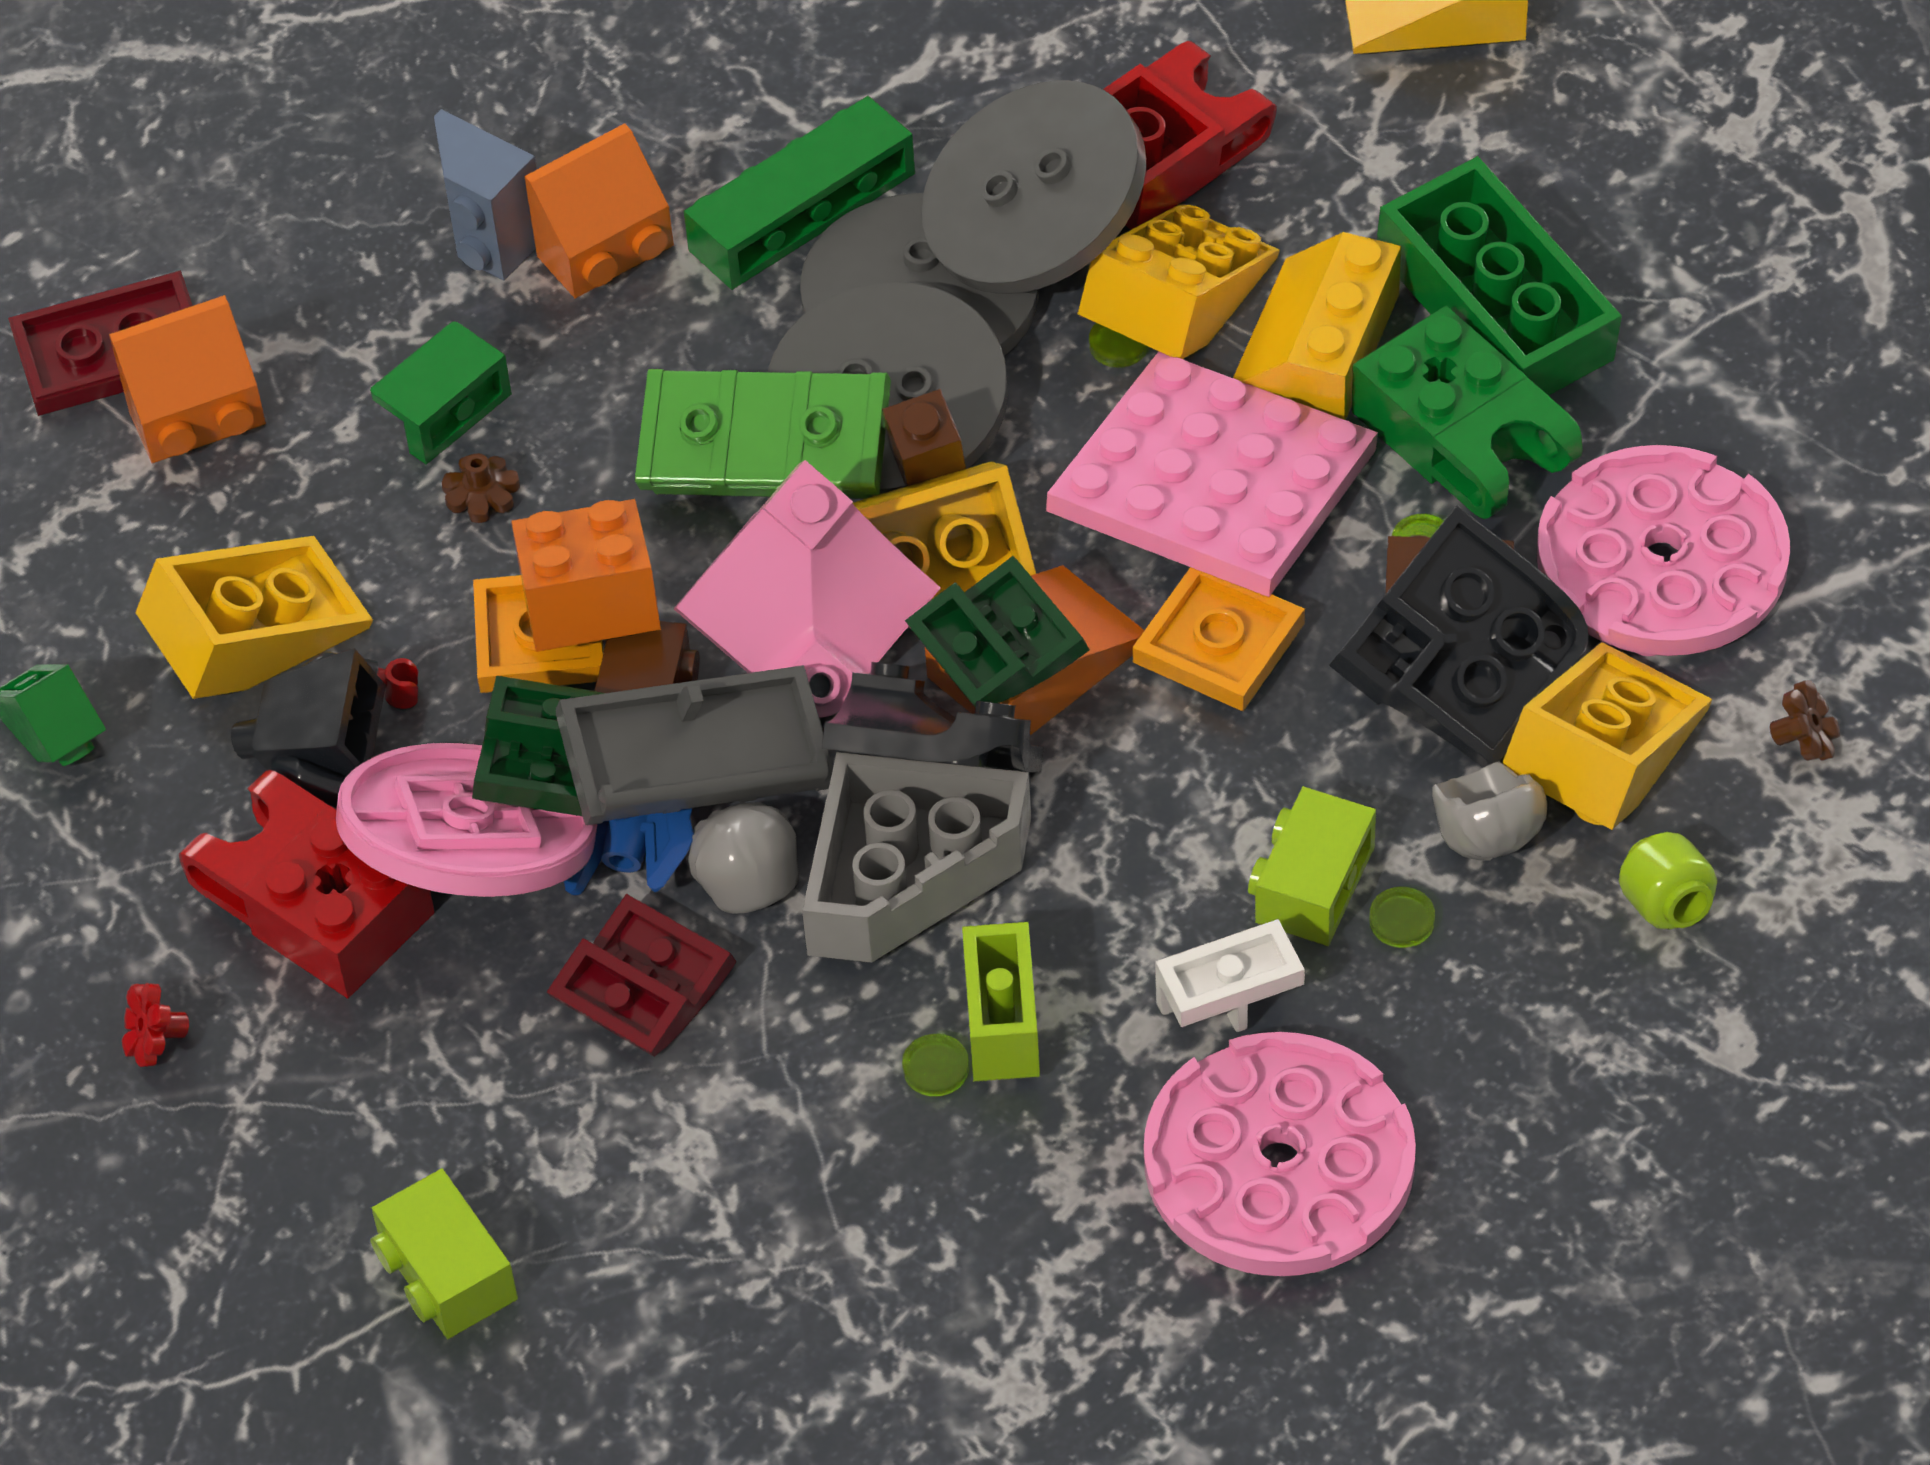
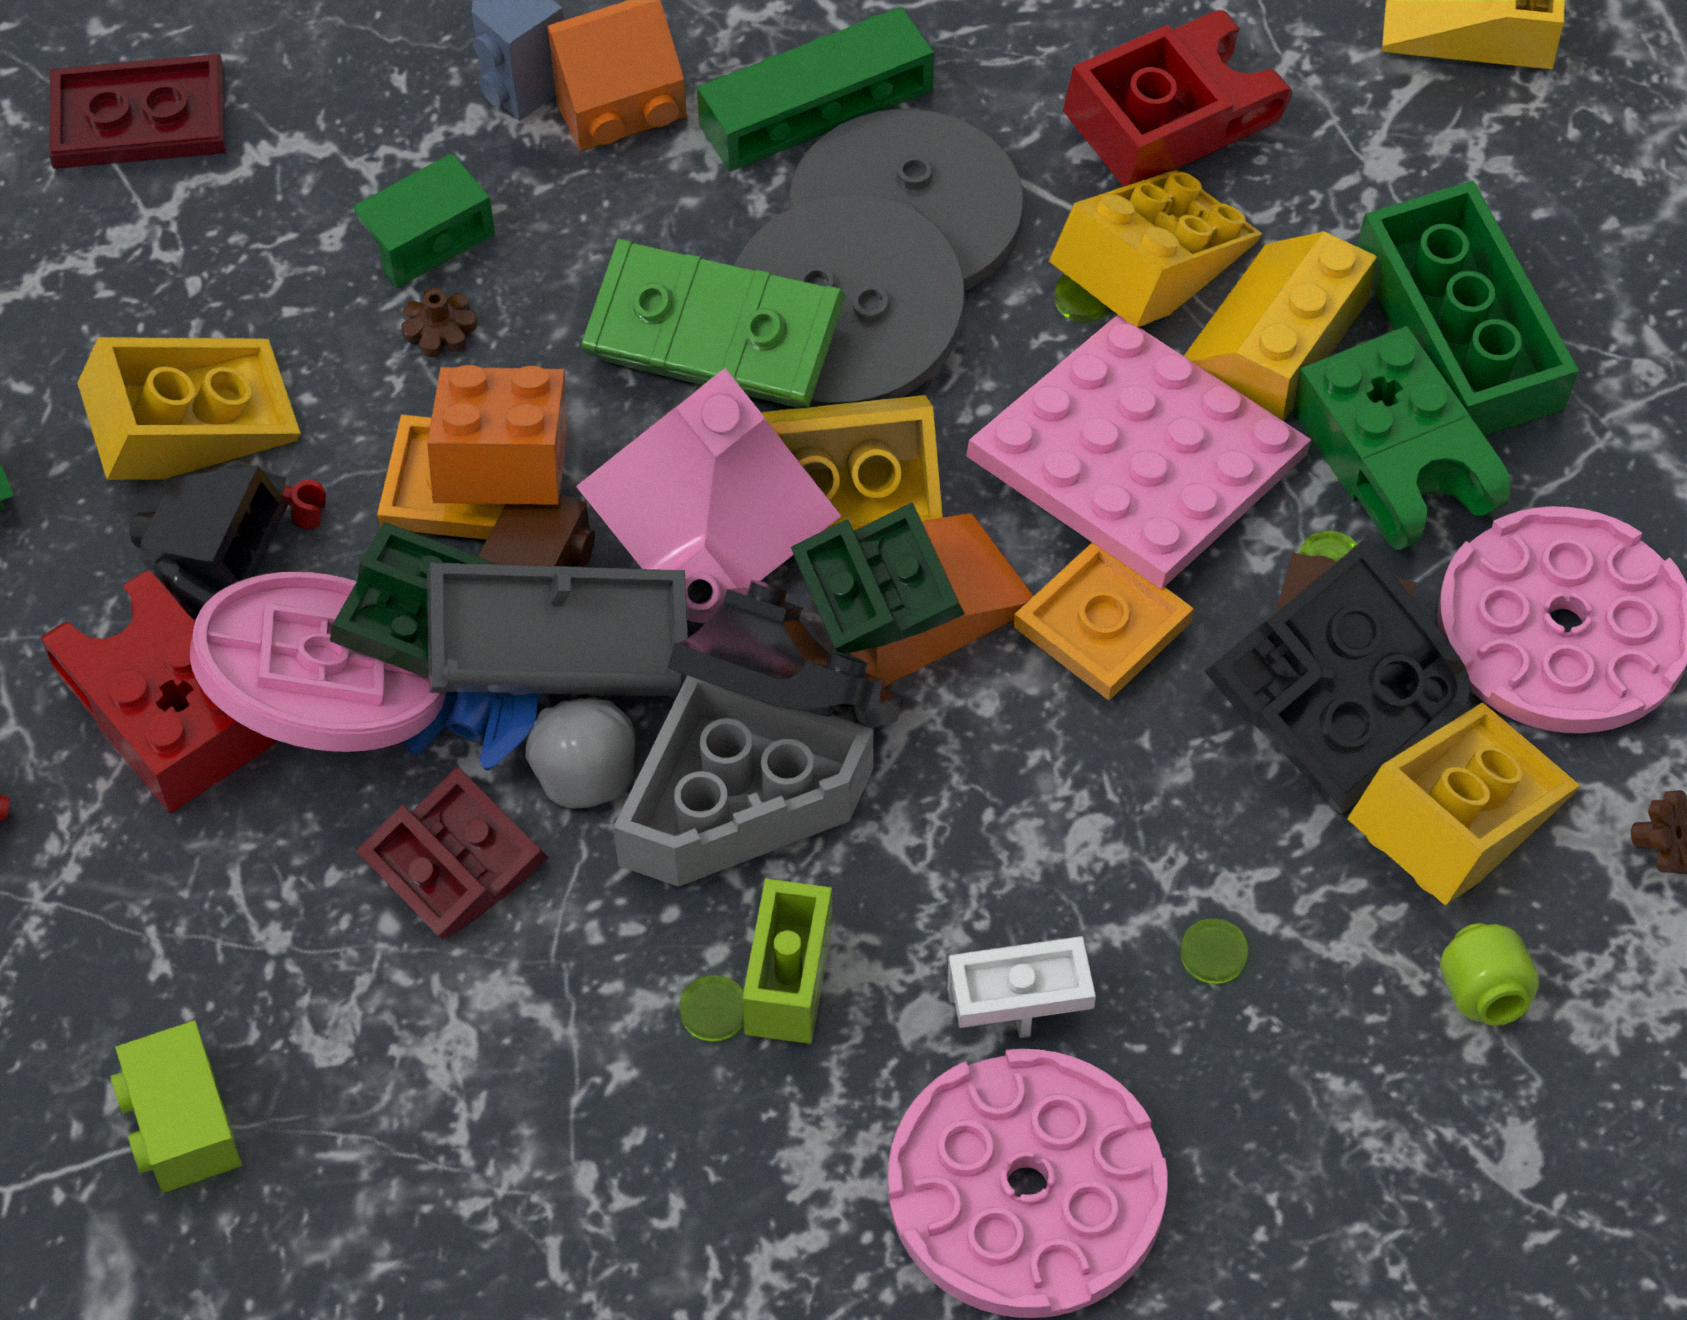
camera: 10 degrees right, 5 degrees up
(187, 379) = (188, 162): orange slope -> none
(923, 438) = (862, 360): reddish brown brick -> none
(1033, 187) = (1033, 128): dark grey plate -> none
(1313, 864) = (1136, 880): lime brick -> none
(1489, 811) = (1325, 861): light grey hair -> none

